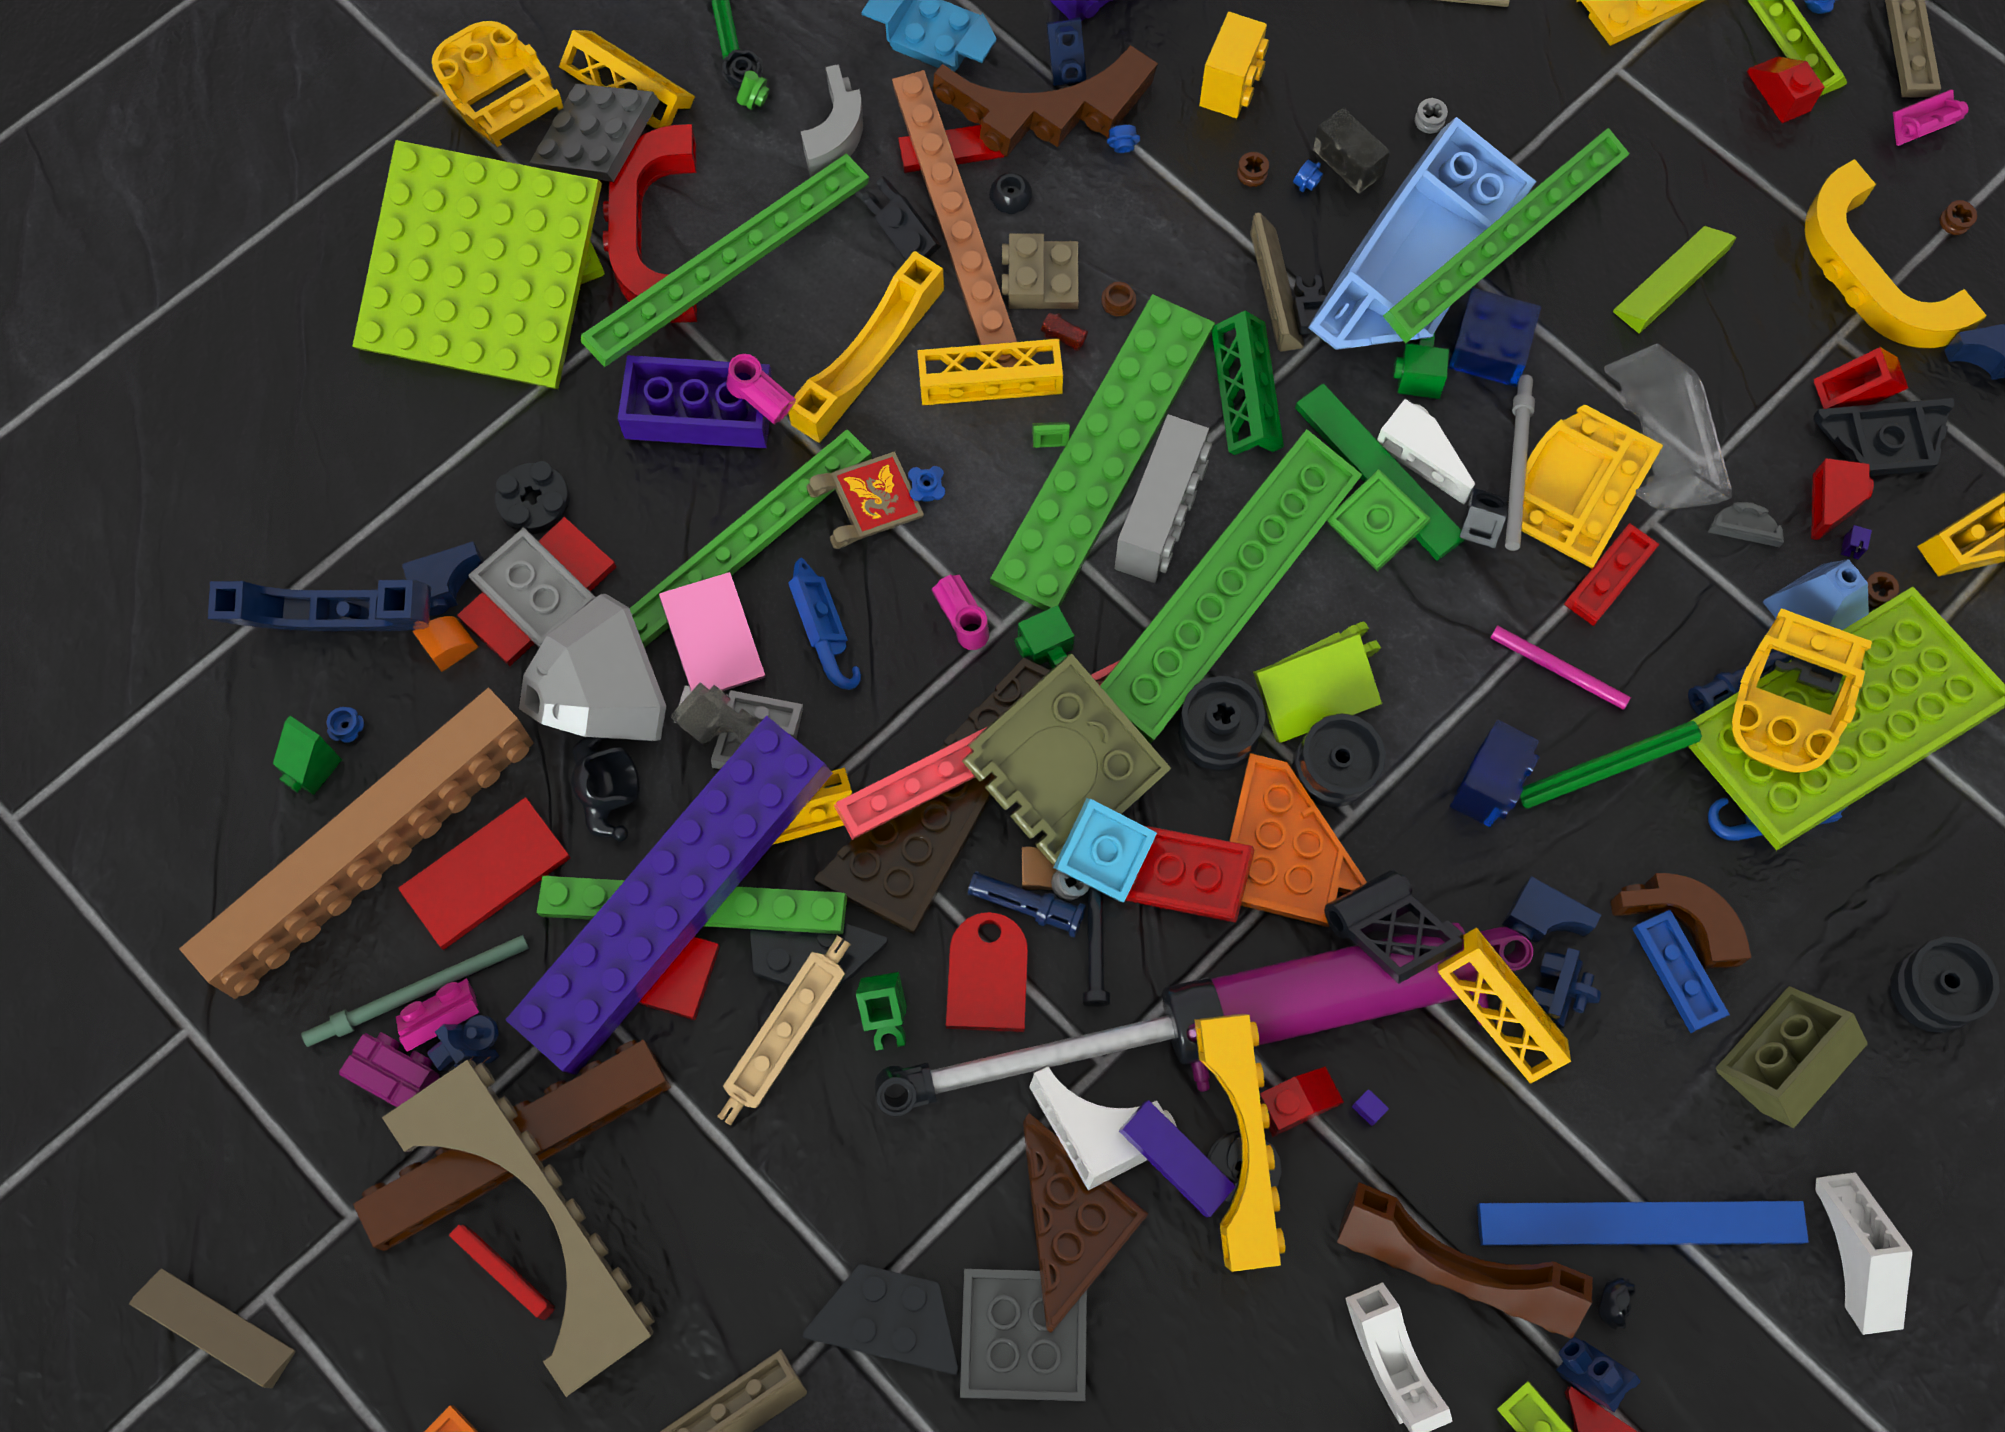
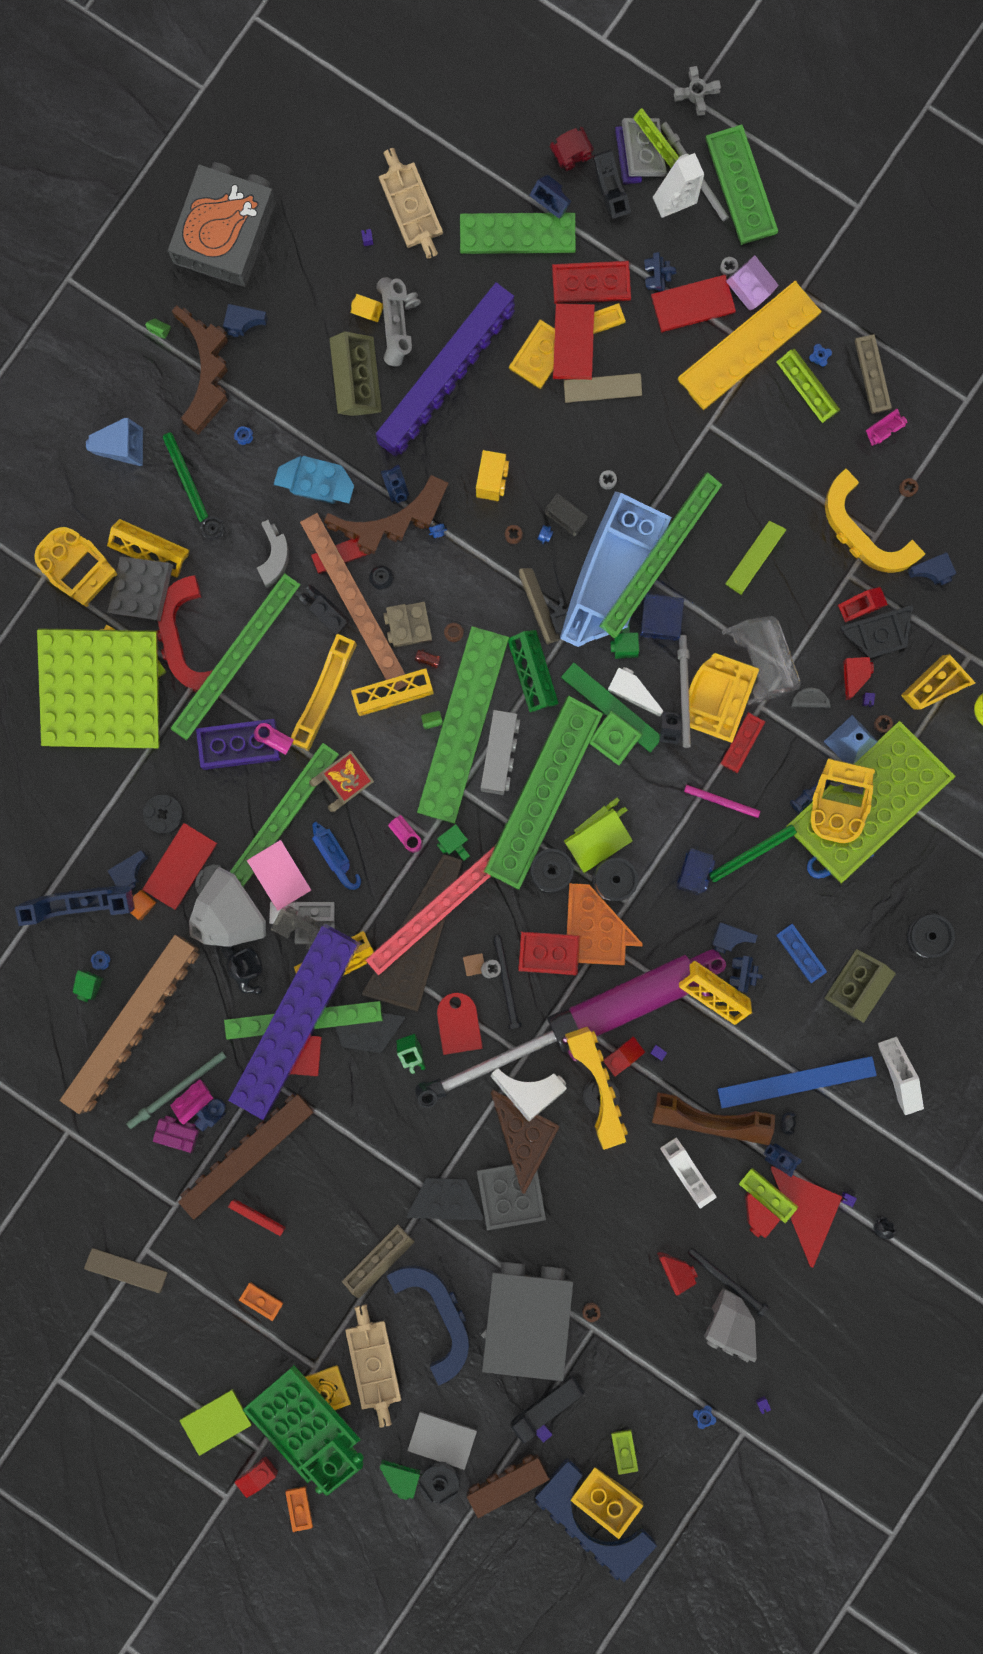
camera: 10 degrees left, 15 degrees up
(484, 873) = (194, 1023): red tile -> none
(530, 586) = (178, 868): light grey tile -> none
(599, 1314) = (224, 1152): dark tan arch -> none
(752, 90) = (222, 542): bright green plate -> none
(784, 1030) = (364, 1074): tan plate -> none
(926, 493) = (371, 769): blue plate -> none
(1044, 908) = (480, 985): dark blue pin -> none
(1060, 748) = (476, 910): olive hinge -> none
(1105, 850) = (505, 952): medium azure plate -> none
(1177, 1158) = (568, 1100): dark purple tile -> none
(1376, 908) = (647, 952): black piece -> none
(1705, 913) = (814, 925): reddish brown arch -> none
(1787, 86) = (804, 421): red slope -> none

